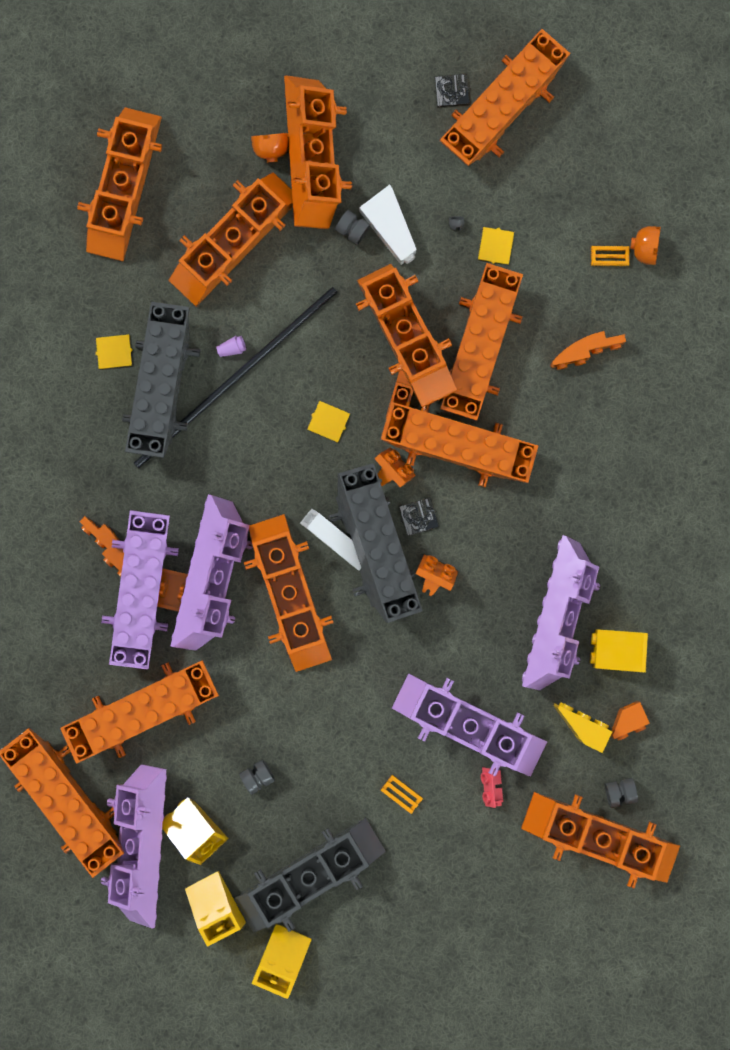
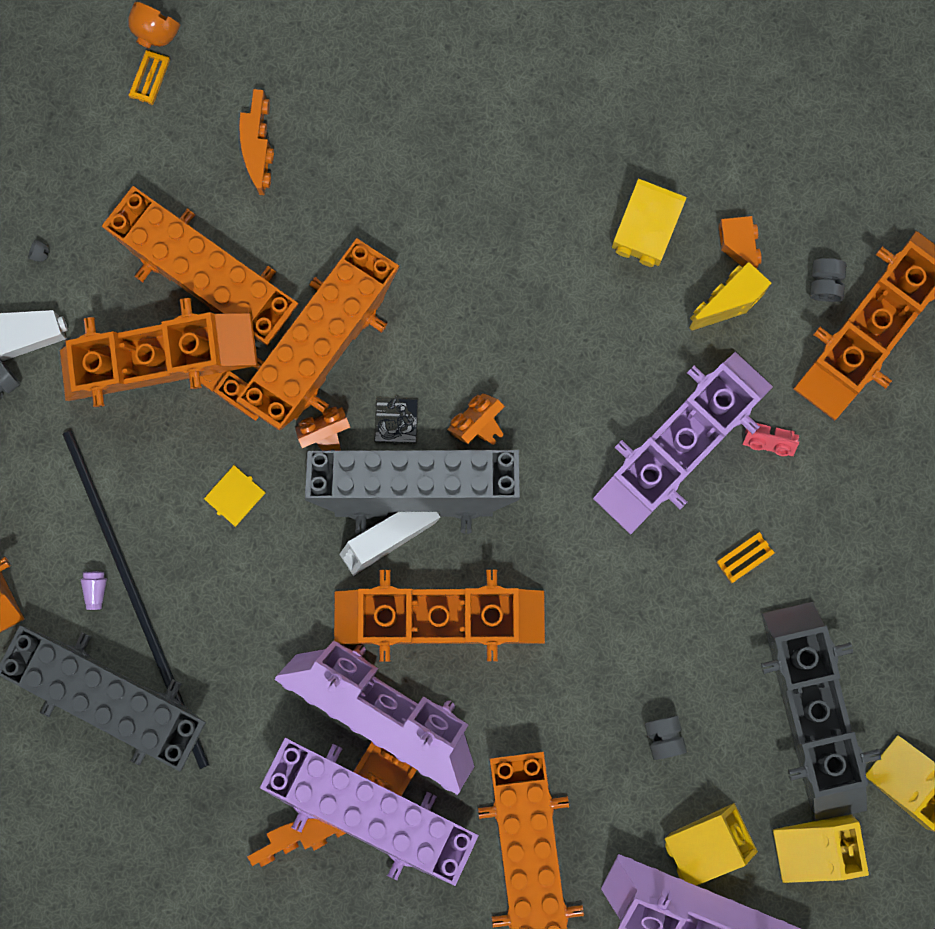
camera: 65 degrees left, 5 degrees down
(114, 351) = (44, 747): yellow piece -> none
(495, 245) = (85, 212): yellow piece -> none
(553, 643) = (613, 301): lavender piece -> none

